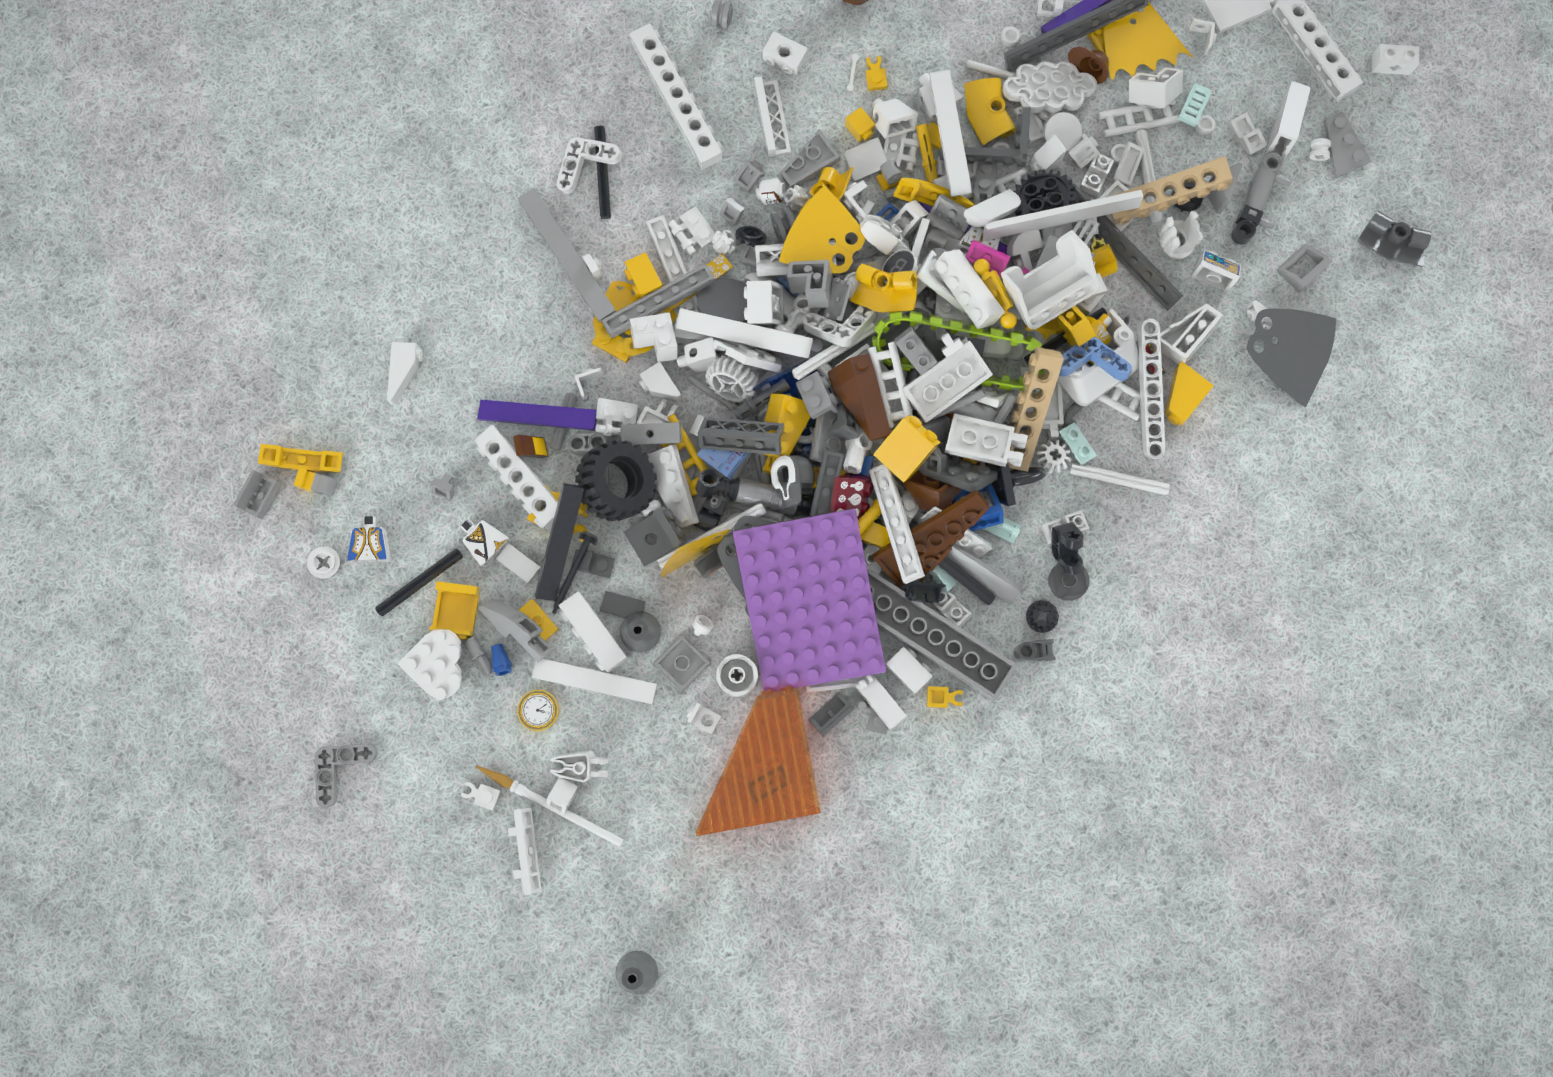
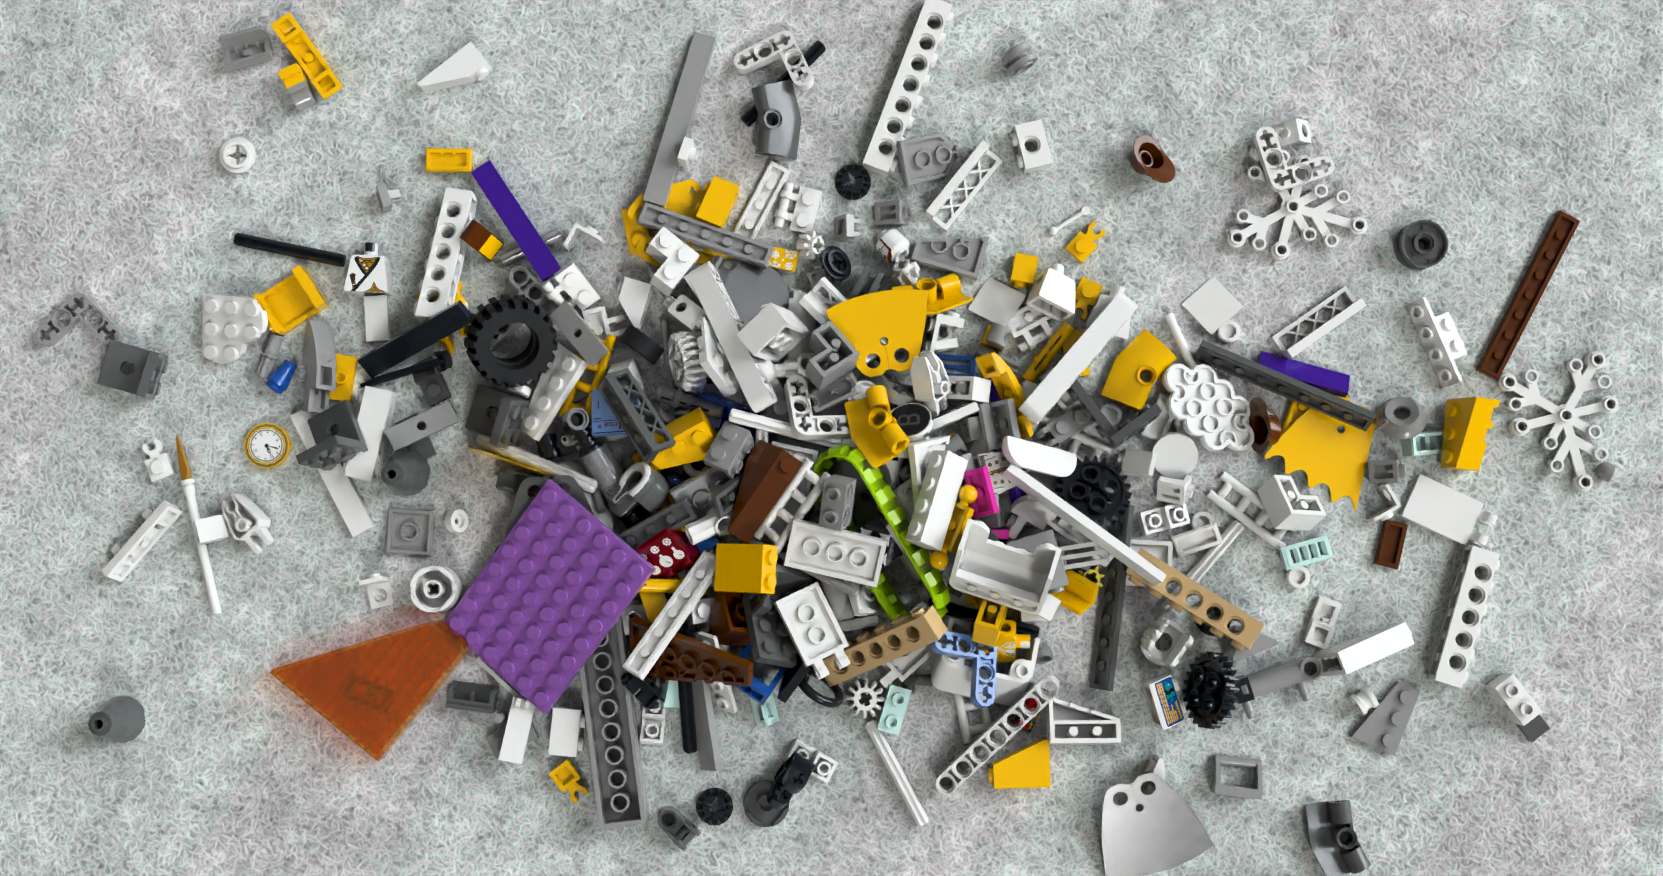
camera: 50 degrees right, 5 degrees up
(369, 543) = (285, 179): torso -> none
(414, 747) = (146, 373): none -> dark grey bracket
(456, 426) = (448, 160): none -> yellow plate
(583, 664) = (337, 448): none -> dark grey bracket
(621, 581) = (407, 432): none -> light grey tile
(623, 194) = (781, 105): none -> panel
(693, 401) = (642, 344): none -> black tyre
(711, 189) = (848, 191): none -> black gear
(733, 123) = (926, 158): none -> light grey tile
(911, 99) = (1086, 295): none -> yellow plate
(951, 345) = (868, 529): white tile -> none
(985, 31) = (1212, 305): none -> white sticker
(1183, 16) = (1385, 471): none -> light grey bracket
(1232, 52) = (1390, 544): none -> reddish brown tile
(1236, 231) = (1210, 690): none -> black gear
(1424, 66) = (1534, 728): none -> dark grey tile

